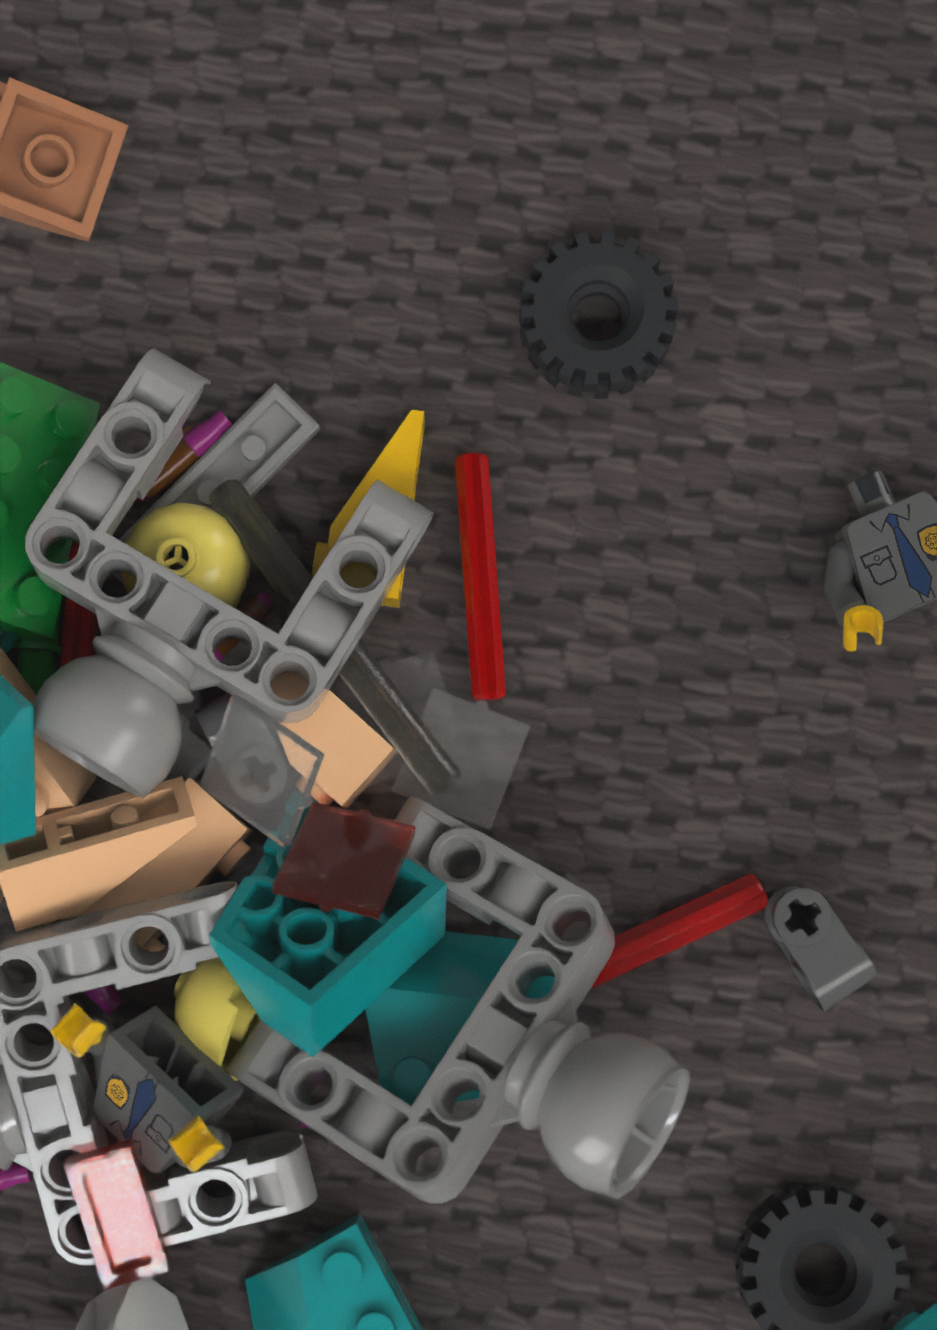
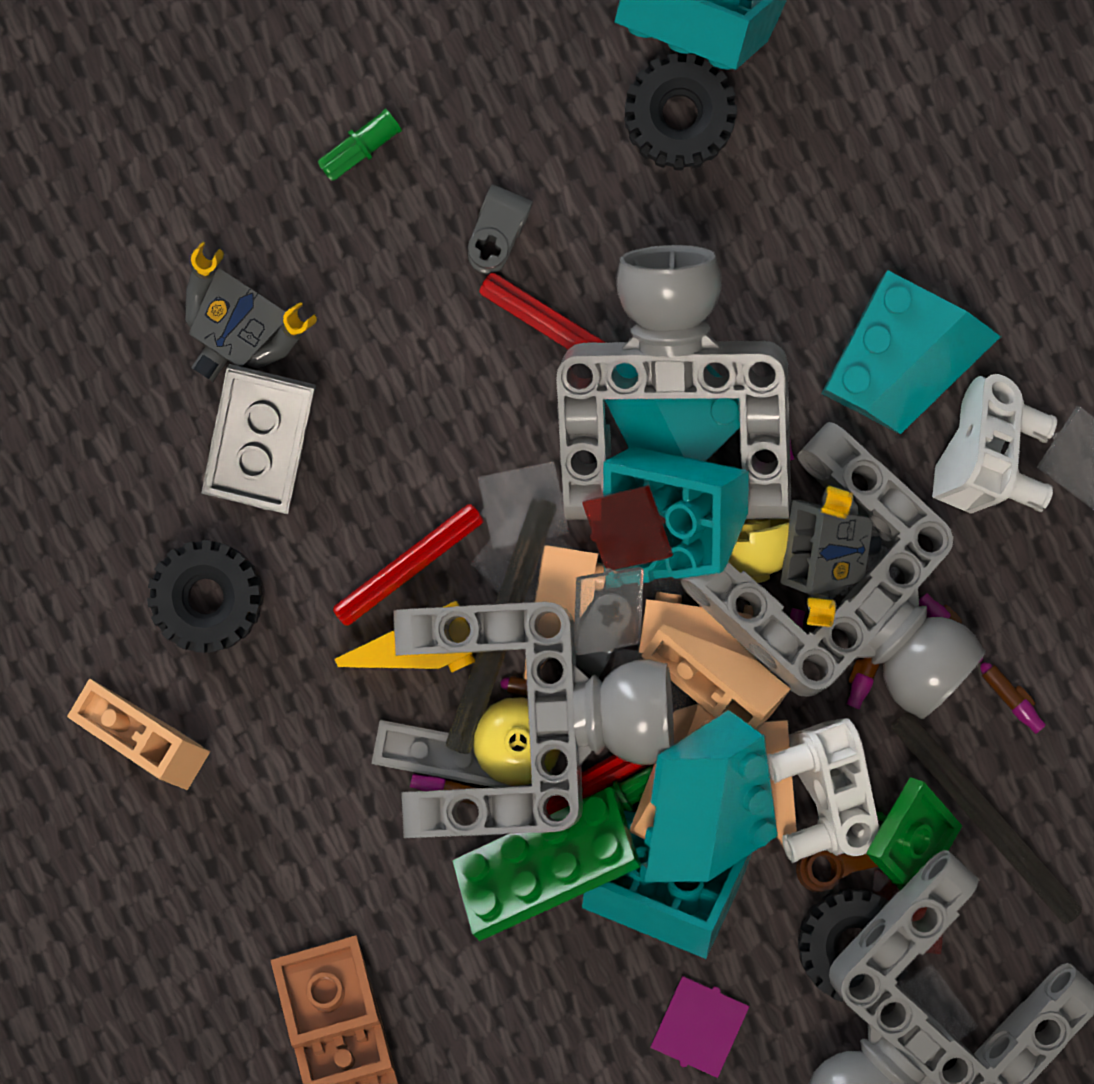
camera: 120 degrees left, 5 degrees up
(117, 1214) = (908, 526): clear red tile -> none
(482, 138) = (138, 735): none -> light nougat slope
(746, 494) = (258, 439): none -> tile

